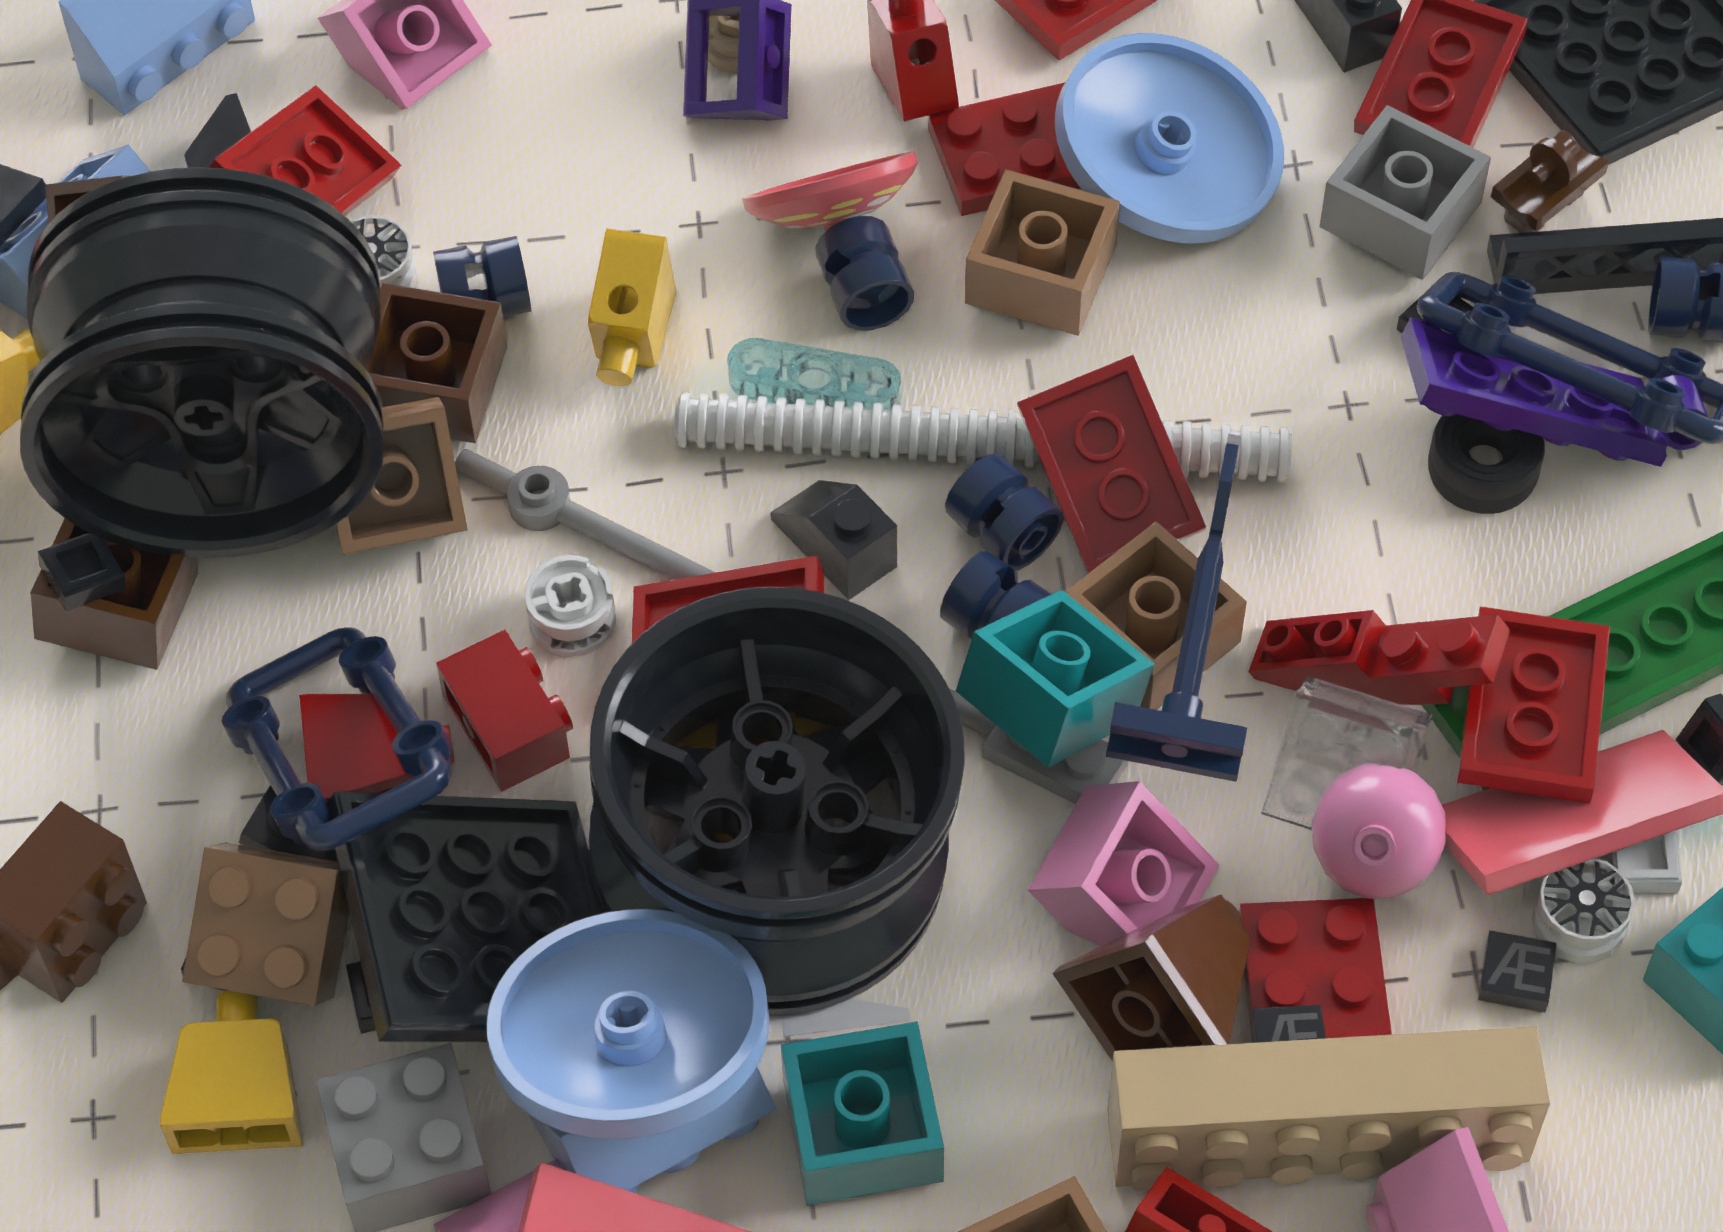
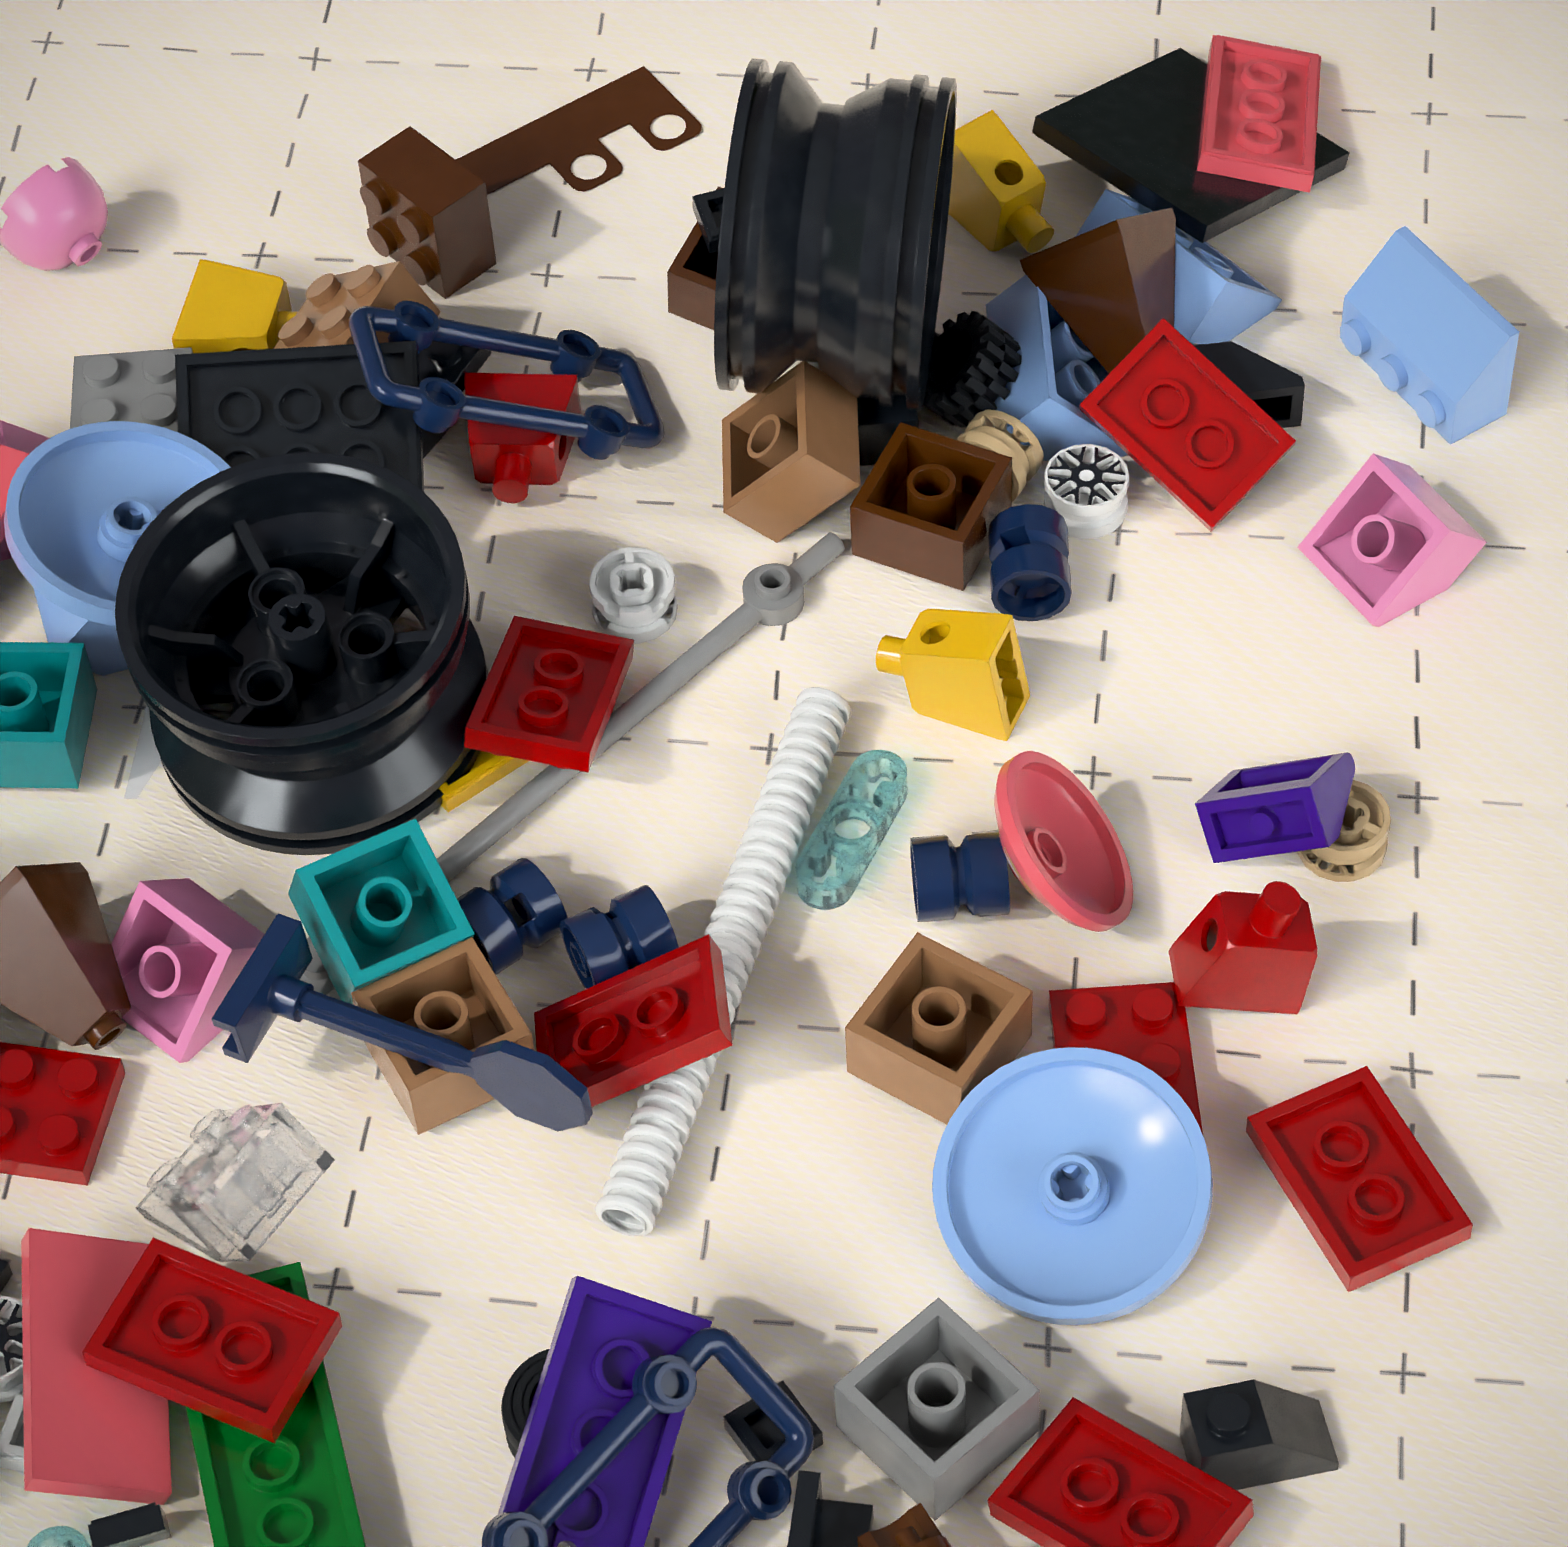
camera: 105 degrees right, 5 degrees down
(505, 709) = (532, 530): red brick -> none
(844, 531) = (647, 808): black slope -> none
(1378, 831) = (120, 1161): bright pink cylinder -> none
(1392, 662) = (331, 1223): red slope -> none

